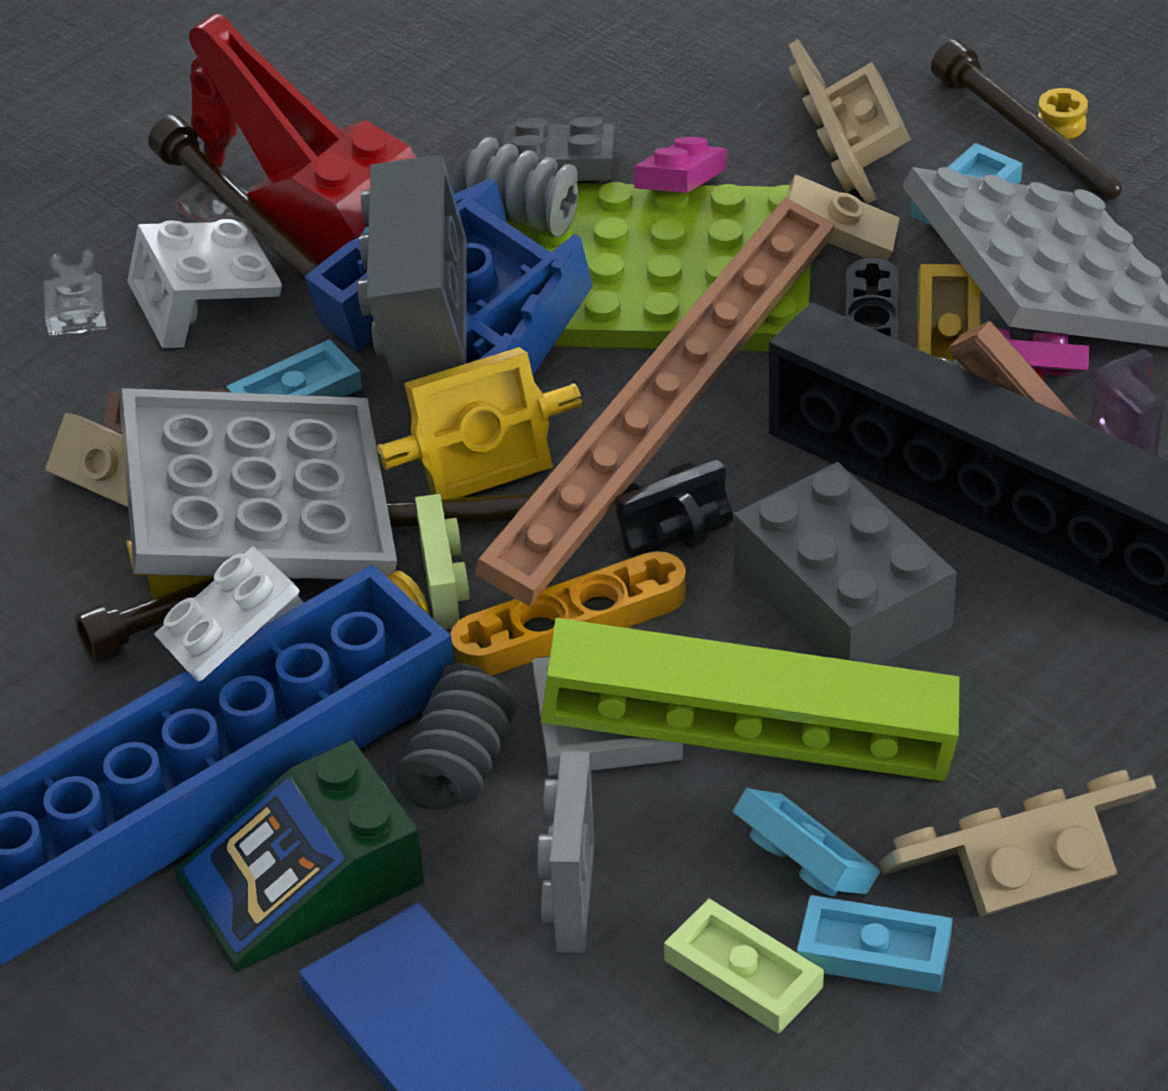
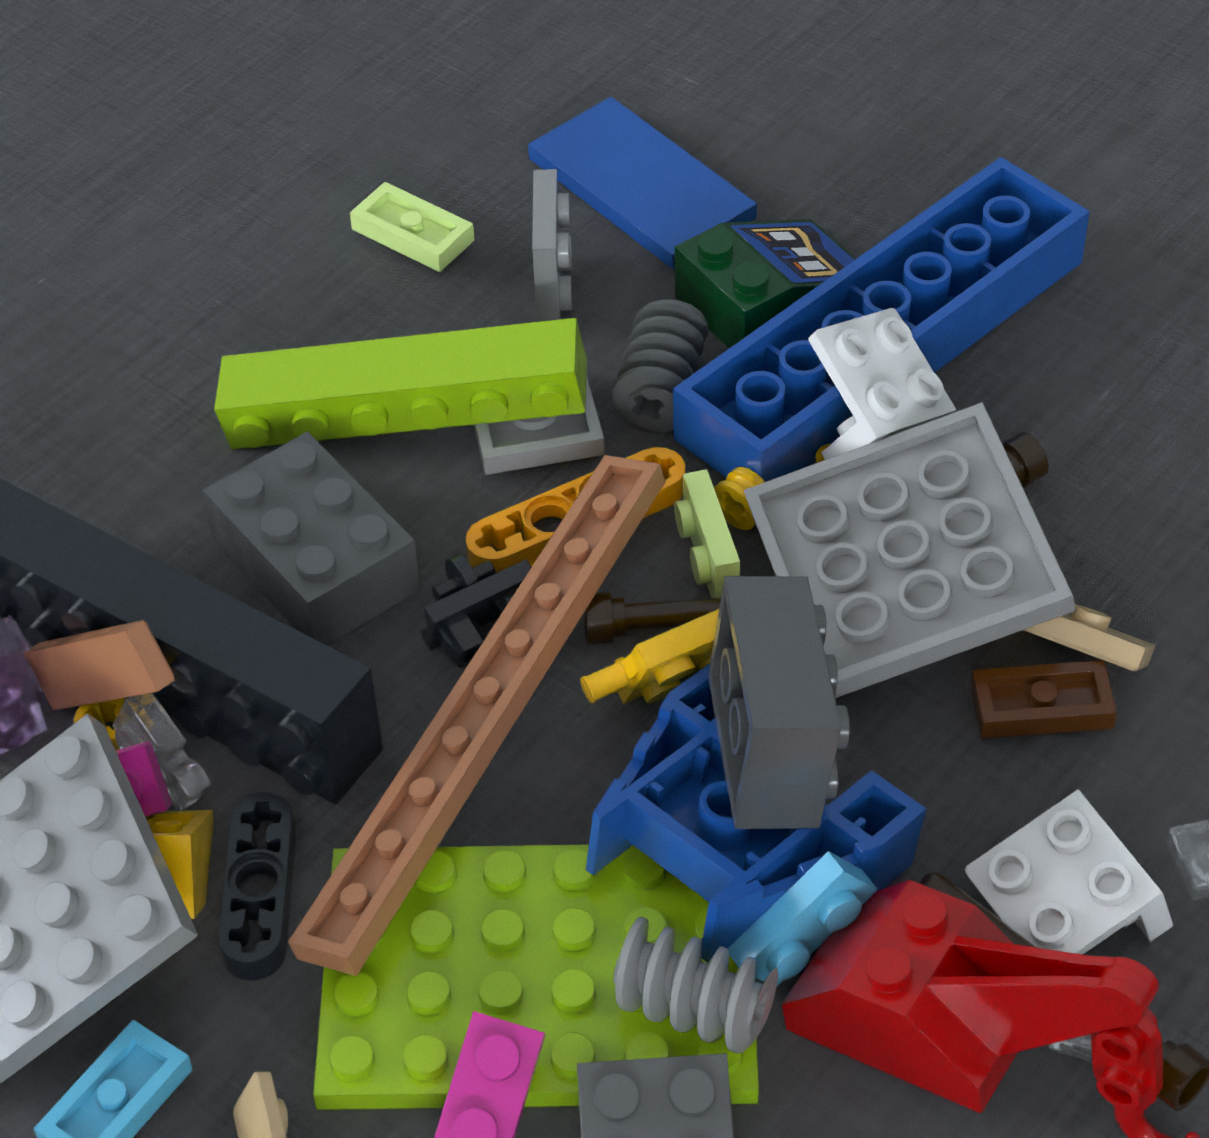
camera: 175 degrees right, 5 degrees up
(313, 372) = (917, 743): medium azure plate -> none
(787, 829) = (356, 304): medium azure plate -> none
(857, 227) = (283, 1016): tan plate -> none
(876, 943) = (309, 246): medium azure plate -> none
(1031, 853) = (180, 327): tan bracket -> none

